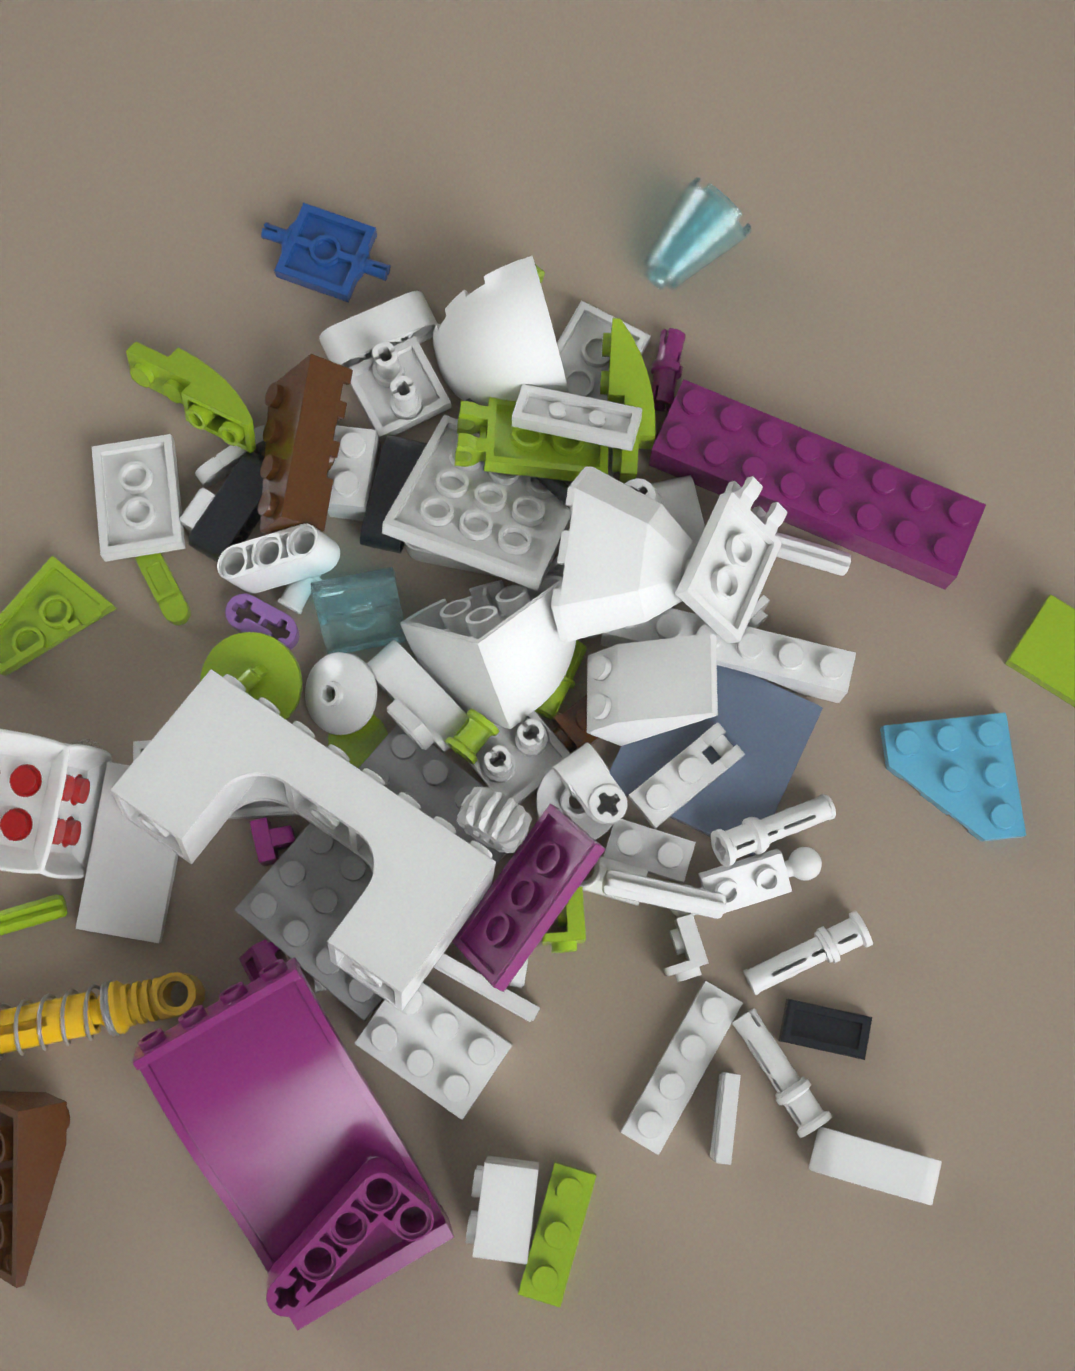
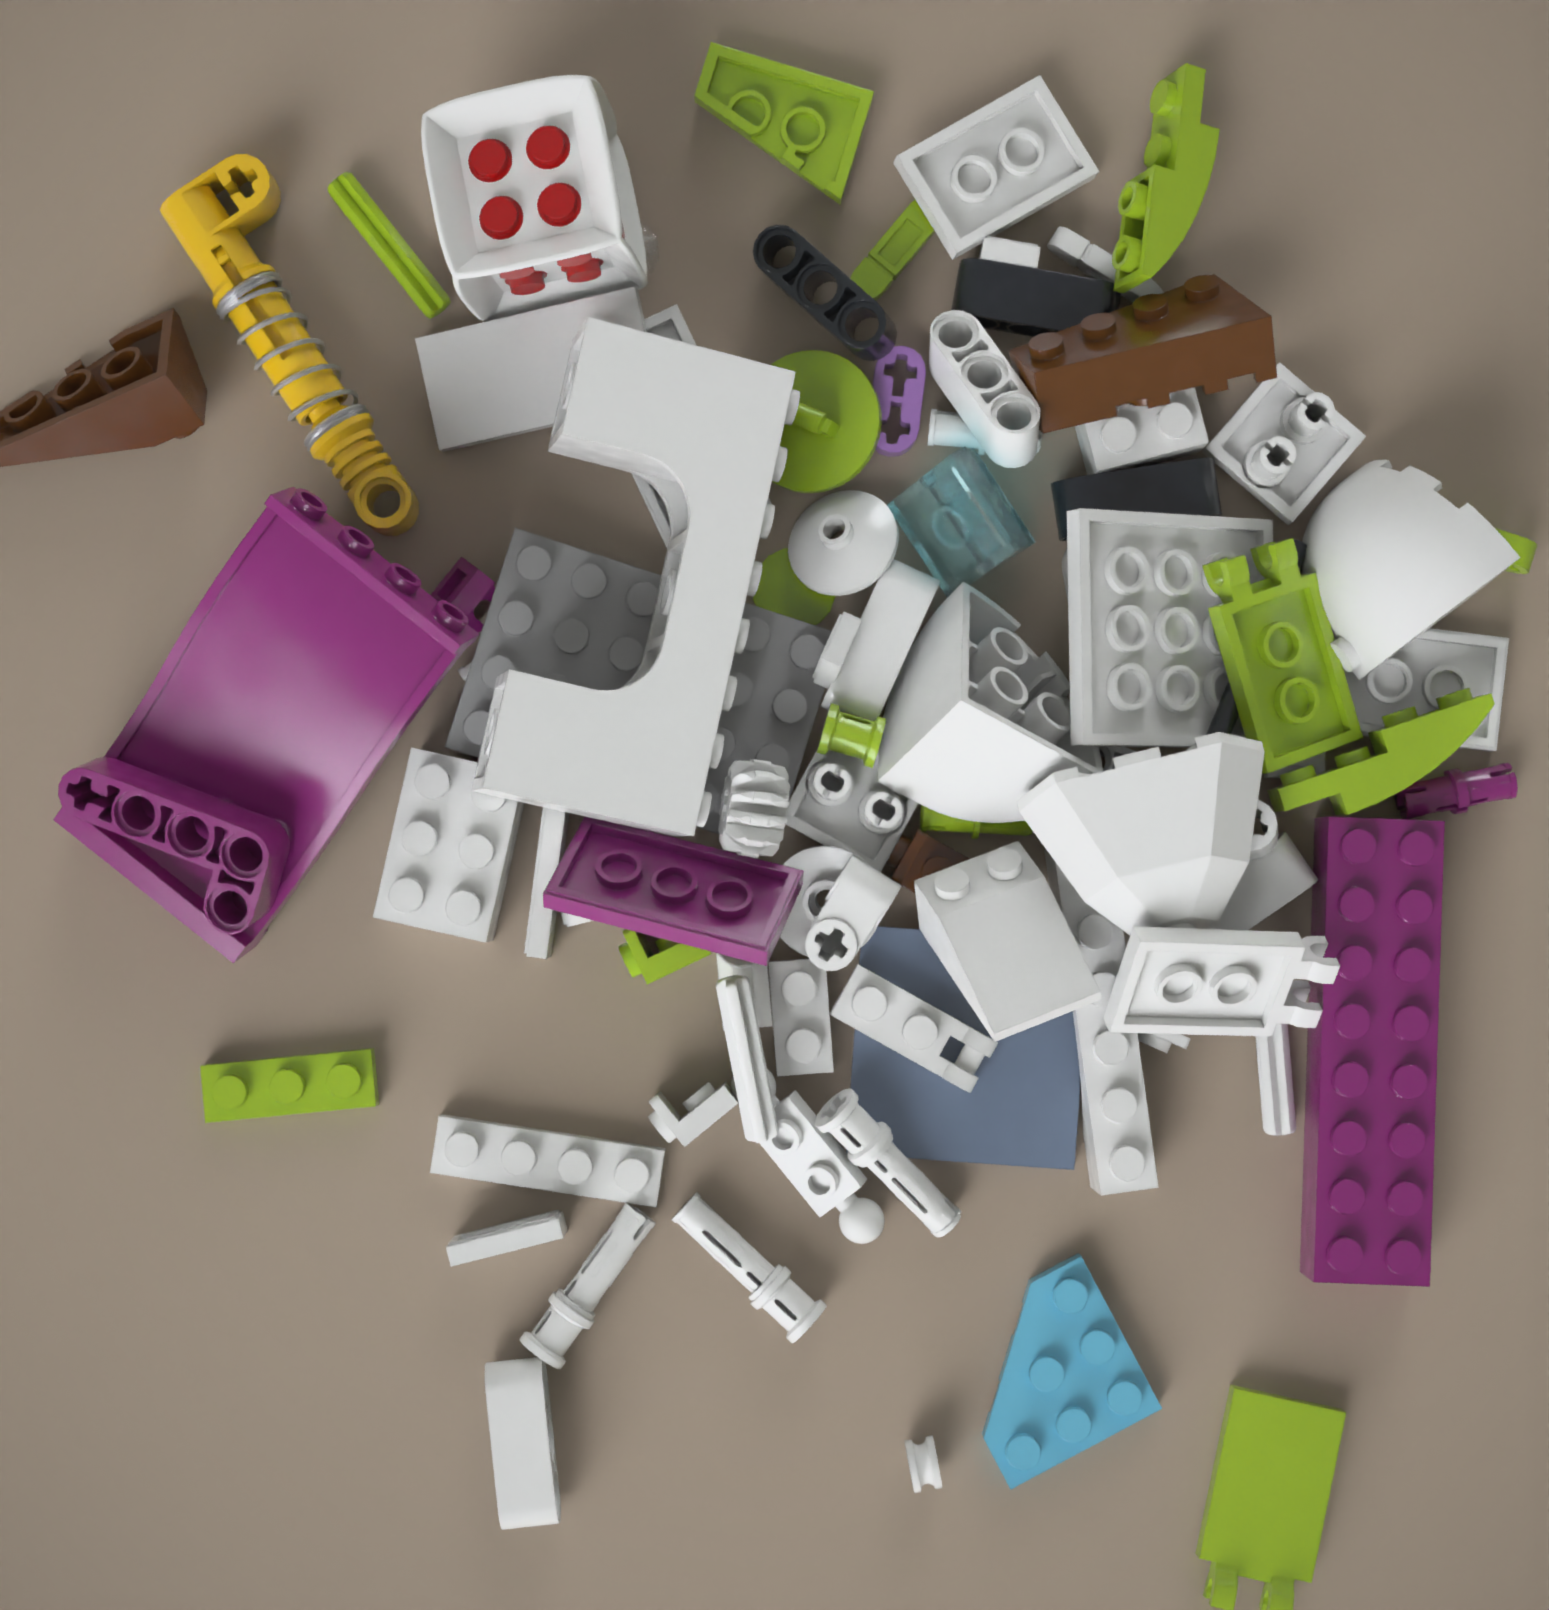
camera: 65 degrees right, 10 degrees up
(151, 643) = (806, 274): none -> black beam
(270, 840) = (619, 532): magenta tile -> none
(325, 252) = (1438, 265): blue plate -> none
(391, 322) = (1355, 382): white beam -> none
(505, 1209) = (291, 1013): white brick -> none
(577, 417) = (1328, 702): white plate -> none
(825, 1029) = (665, 1321): black tile -> none
(988, 887) = (923, 1464): none -> white bush

